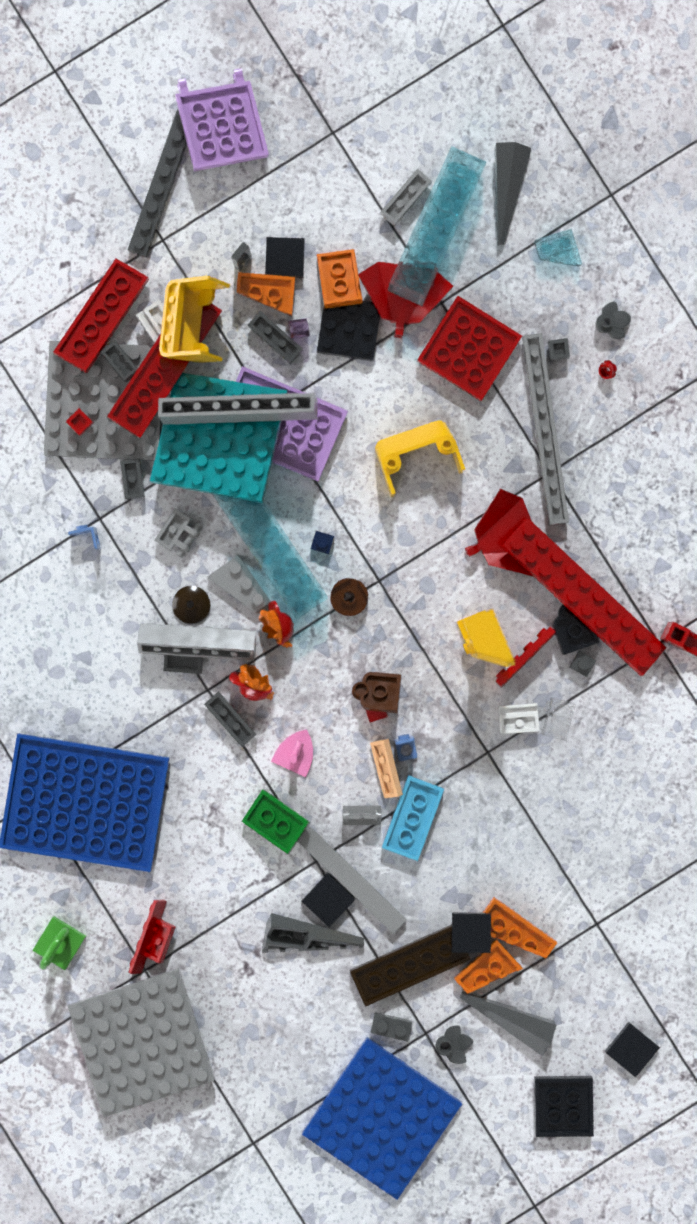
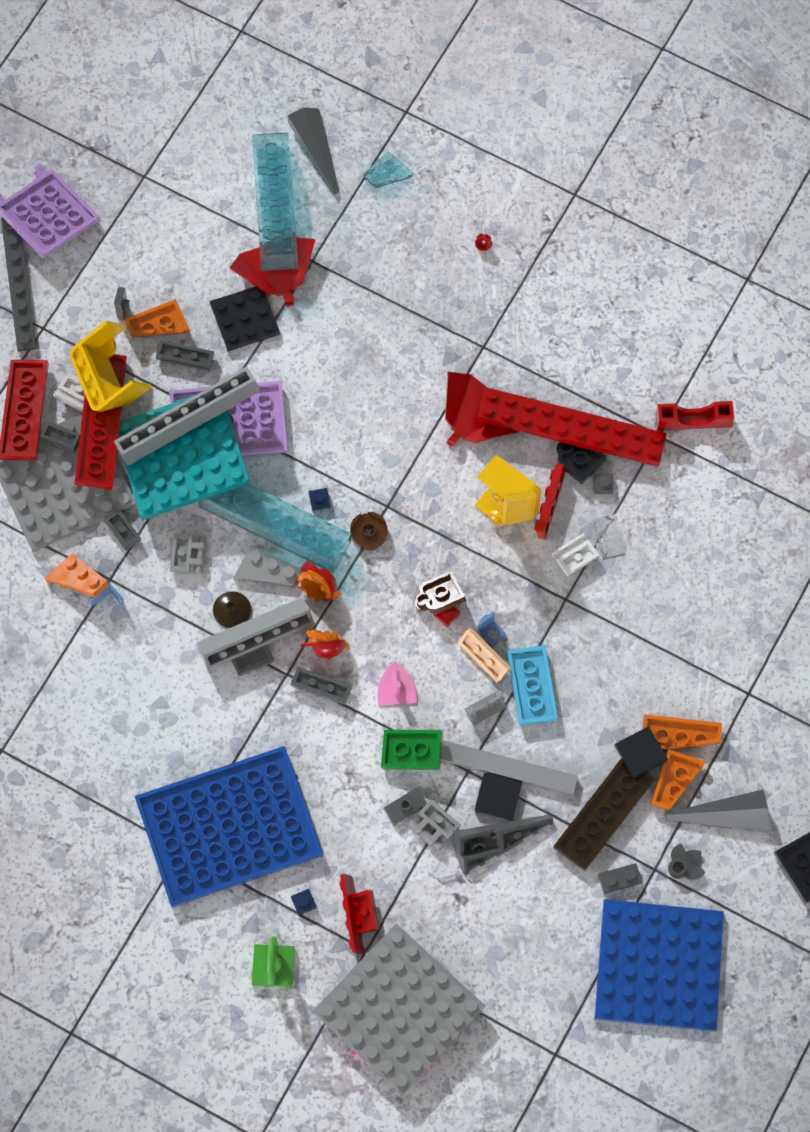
camera: 25 degrees left, 20 degrees down
(70, 504) = (77, 576): none -> orange wing
(79, 422) = (51, 502): red plate -> none
(113, 902) = (303, 902): none -> dark blue plate
(244, 865) = (405, 806): none -> dark grey plate
(265, 894) = (439, 820): none -> light grey plate
(285, 256) = (157, 288): black tile -> none
(298, 328) = (201, 338): clear purple plate -> none
(339, 278) = (214, 282): orange tile -> none
(390, 448) = (338, 395): yellow windscreen -> none
(406, 197) = (235, 194): light grey plate -> none
(469, 348) = (356, 283): red plate -> none
(545, 429) = (459, 314): light grey plate -> none
(558, 349) = (432, 247): dark grey plate -> none
(615, 321) = (465, 204): dark grey plate -> none

